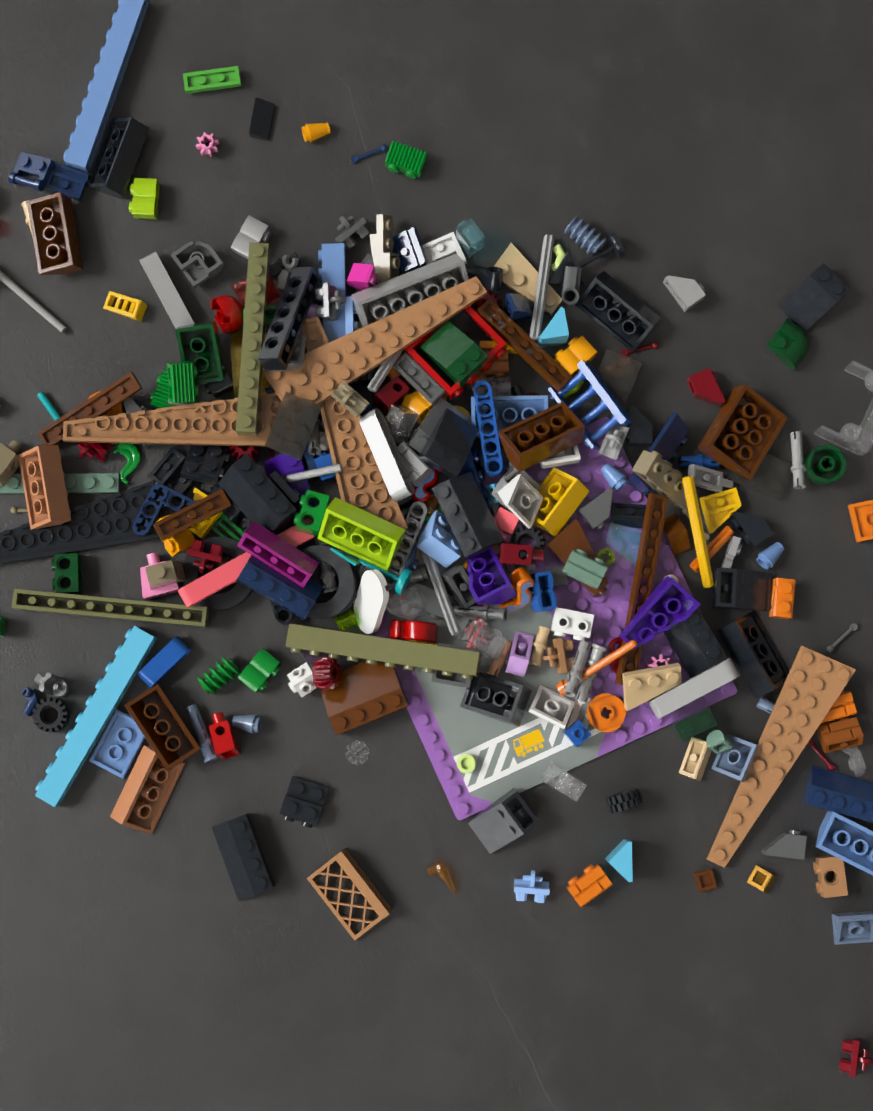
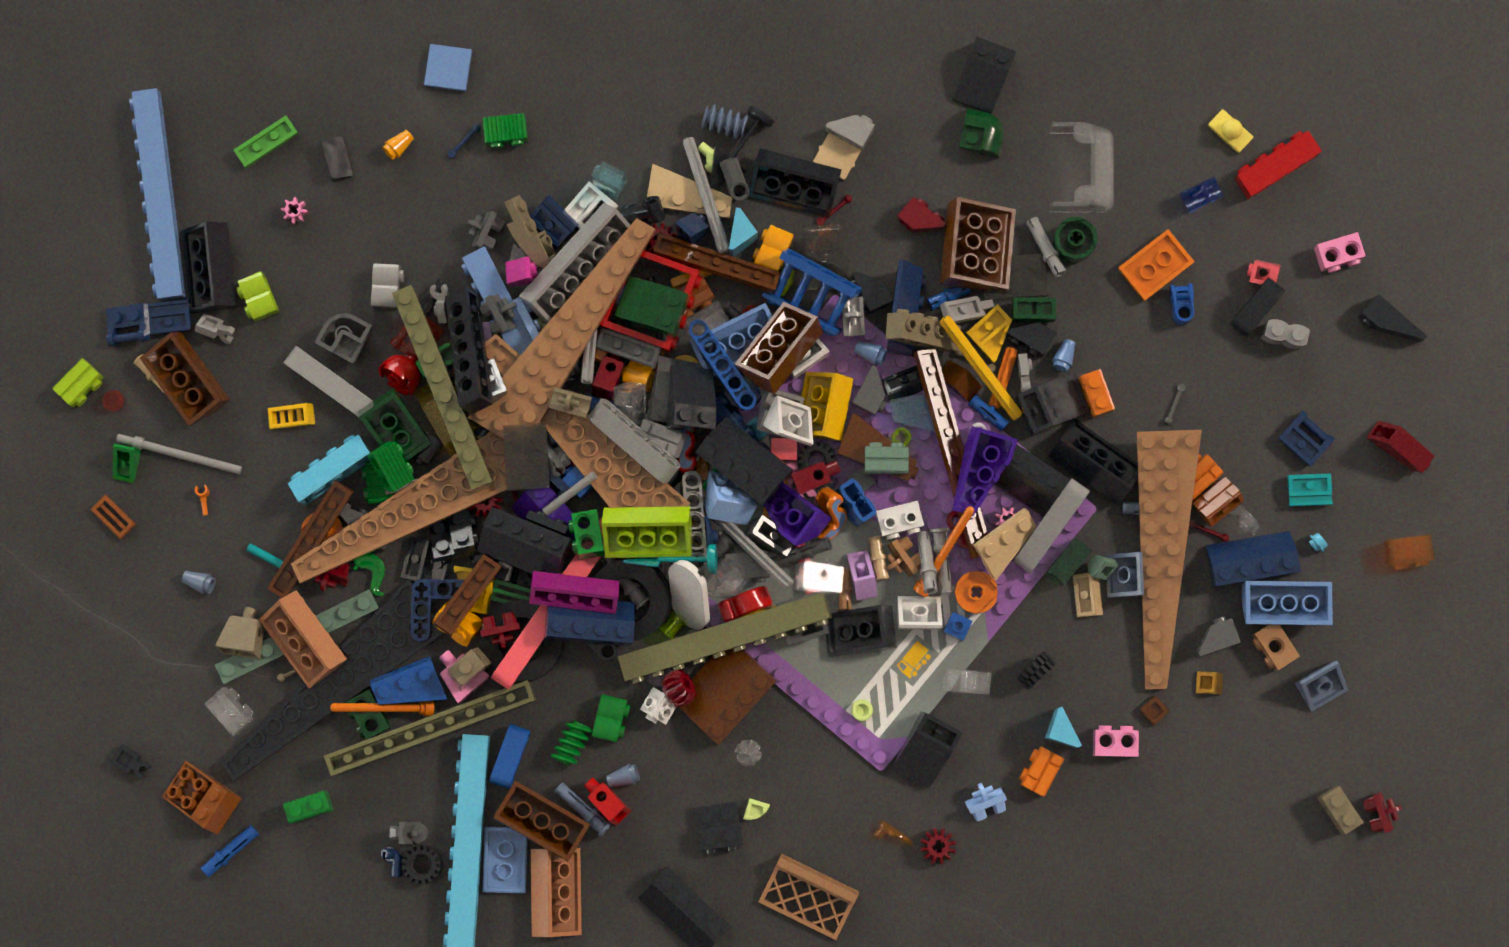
camera: 25 degrees left, 0 degrees up
(24, 336) = (203, 498): none -> orange hand
(99, 206) = (213, 327): none -> light grey plate
(111, 564) = (409, 684): none -> blue wedge
(114, 589) = (423, 707): none -> orange piece
(141, 362) = (335, 466): none -> medium azure slope
(341, 801) = (755, 809): none -> yellowish green tile
(385, 89) = (448, 67): none -> medium blue tile
(478, 910) = (944, 850): none -> dark red gear
(659, 895) = (1115, 747): none -> bright pink brick
(664, 305) = (837, 154): none -> tan piece
(681, 559) = (1000, 421): none -> blue pin
(763, 505) = (1033, 309): none -> dark green brick
(820, 1038) = (1340, 810): none -> dark tan brick

